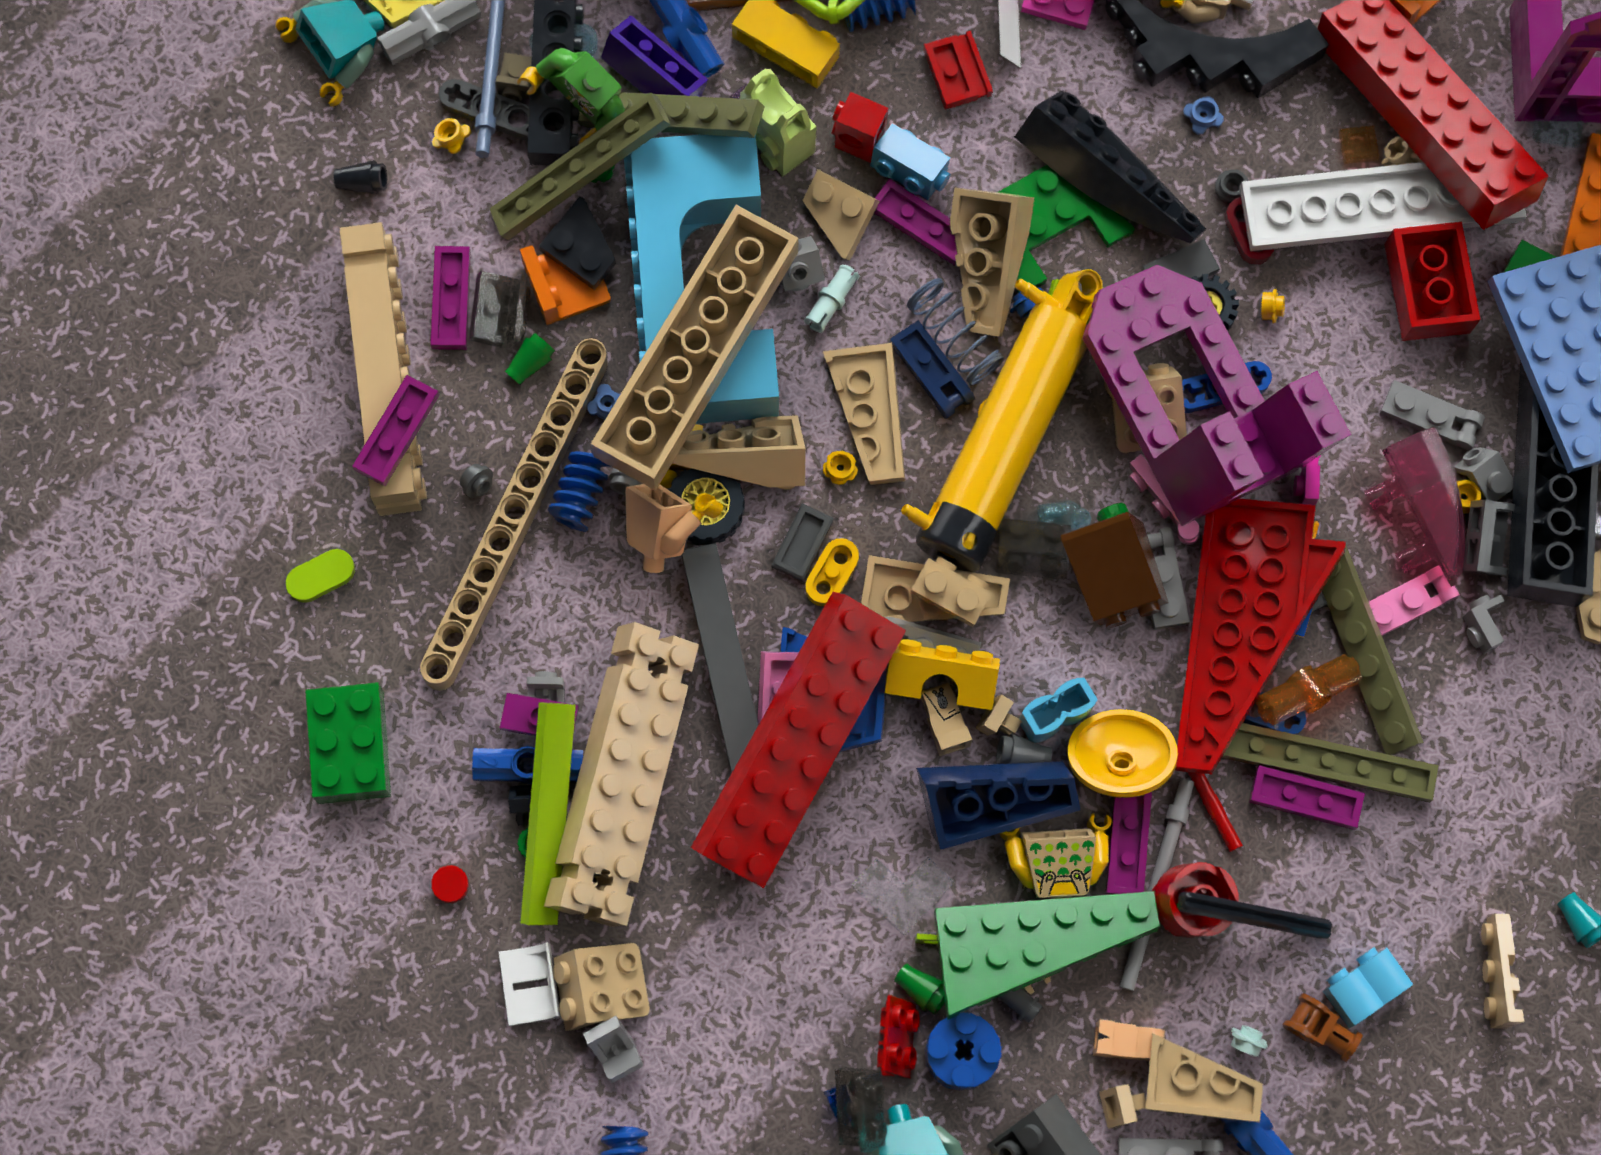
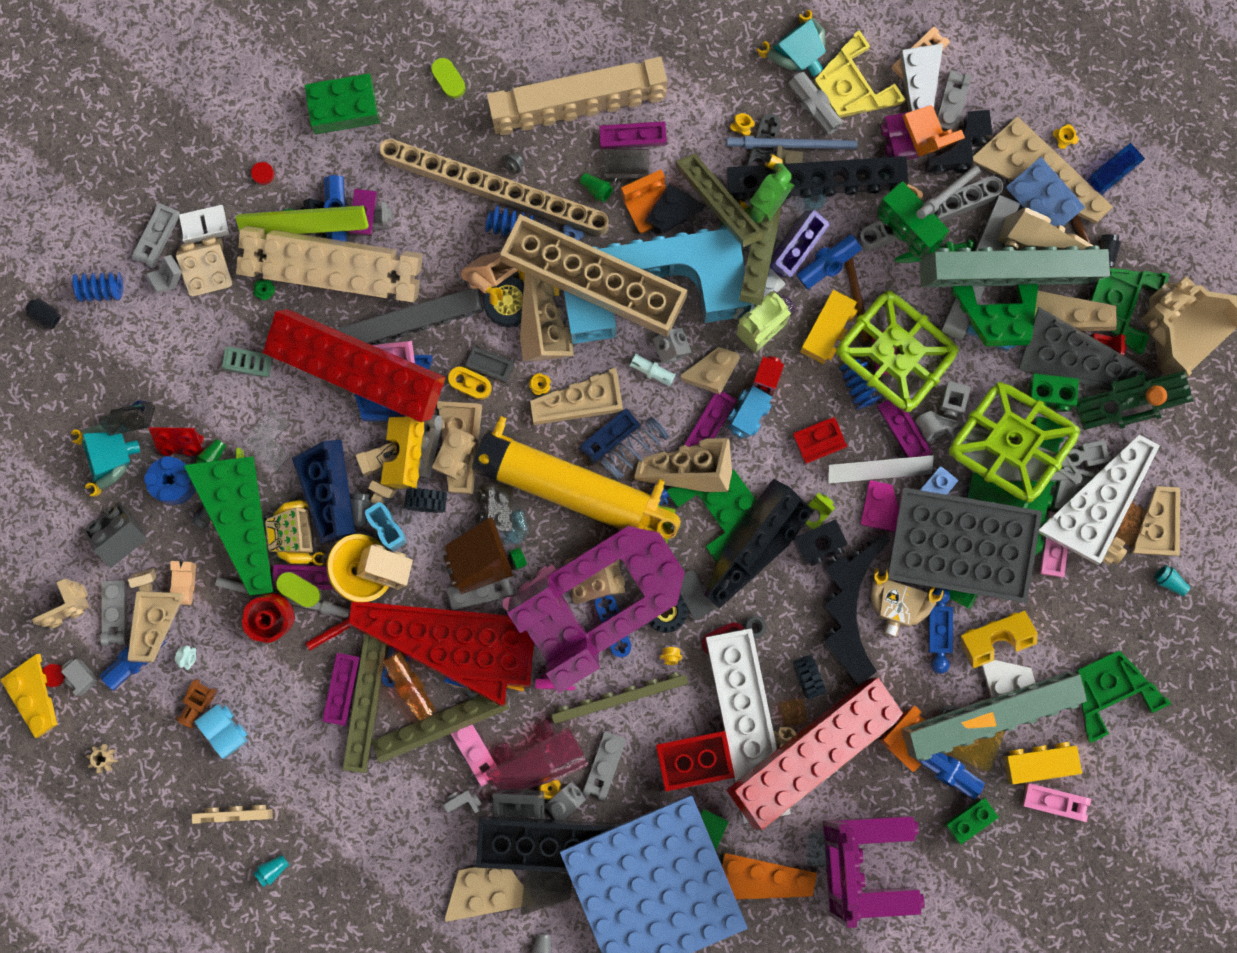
camera: 90 degrees right, 5 degrees up
(362, 177) = (708, 74): black cone -> none
(395, 430) = (527, 102): magenta plate -> none
(539, 1064) = (156, 235): none -> light grey plate
(654, 899) = (263, 295): none -> green plate
(765, 951) = (230, 351): none -> sand green slope
(1020, 646) = (425, 500): none -> black bush
(1057, 73) = (824, 506): none -> lime bracket
(1110, 100) = (830, 533): none -> black brick
(1122, 713) = (384, 567): none -> tan brick
(1150, 851) = (298, 589): none -> lime tile
(1203, 105) = (805, 599): medium blue plate -> none
(1254, 915) = (257, 653): black axle -> none
(1313, 111) = (809, 677): none -> black bush
(1330, 368) = (629, 694): none -> olive plate

